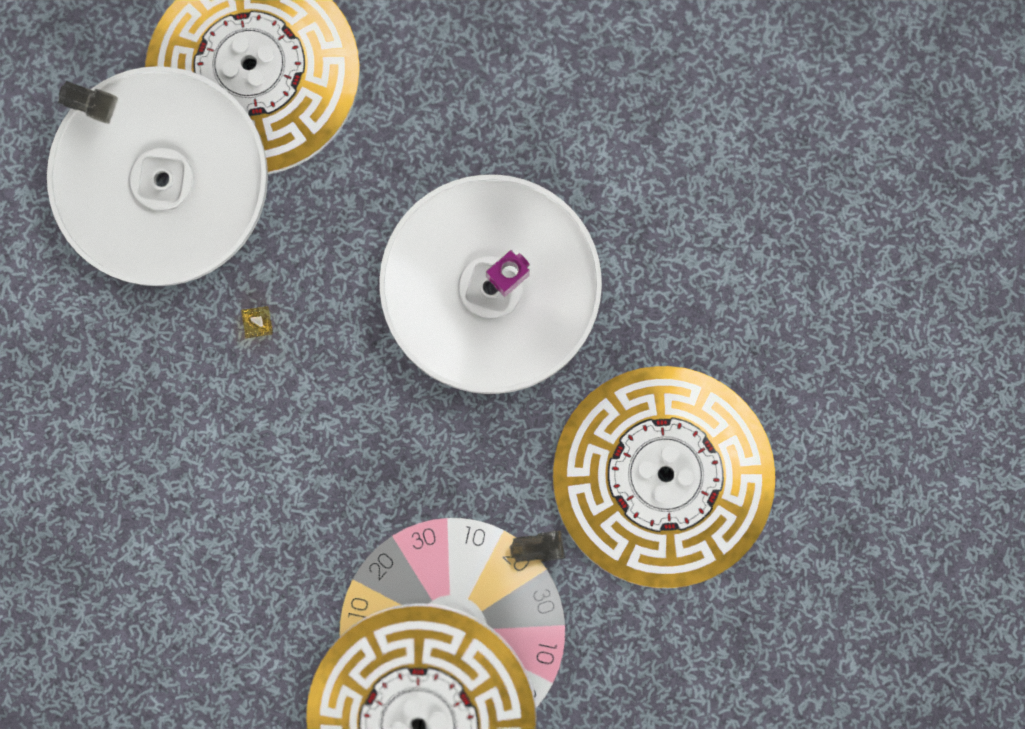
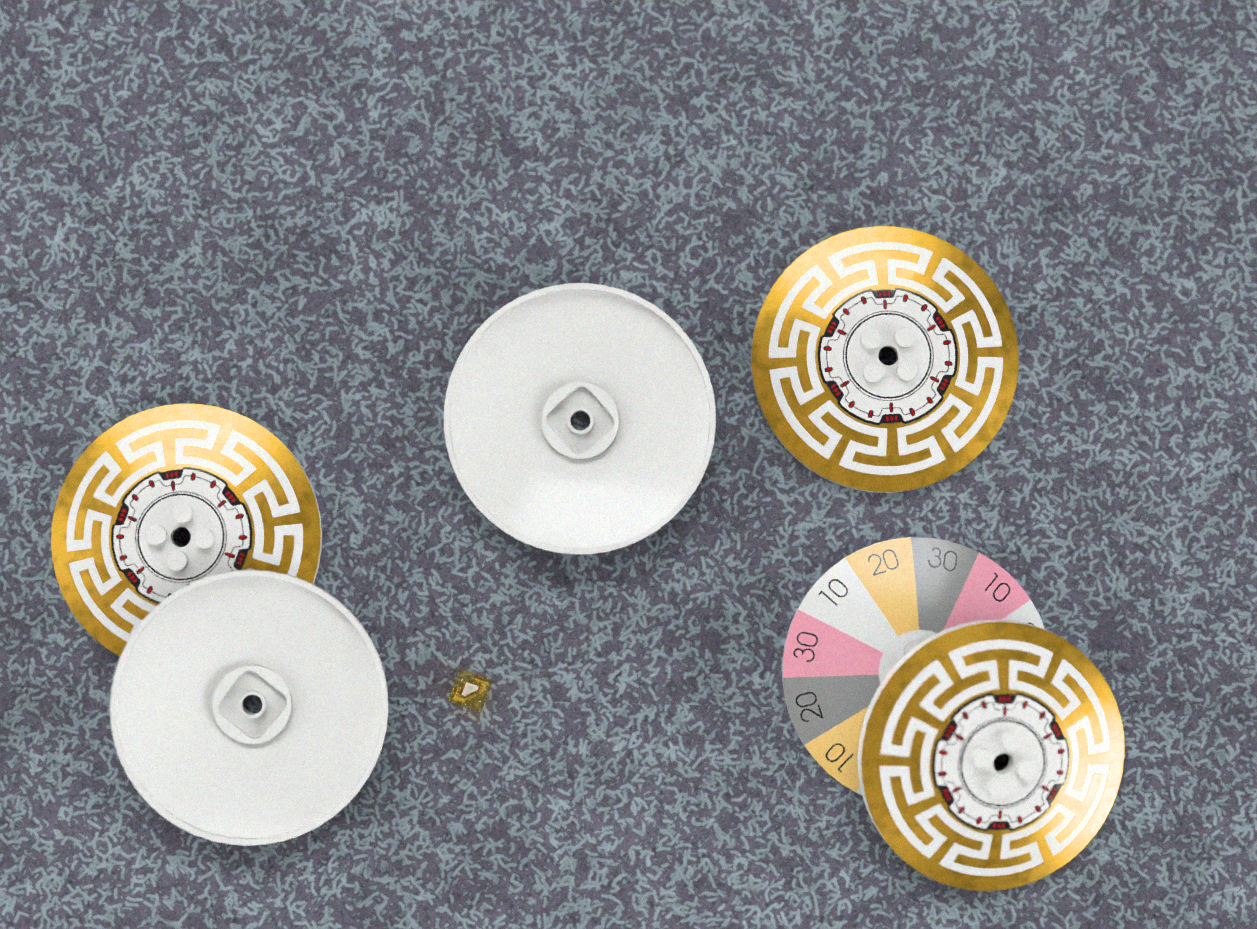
camera: 65 degrees left, 5 degrees up
(94, 103) = (132, 730): clear smoke piece -> none
(502, 283) = (588, 407): magenta brick -> none
(541, 547) = (886, 530): clear smoke piece -> none

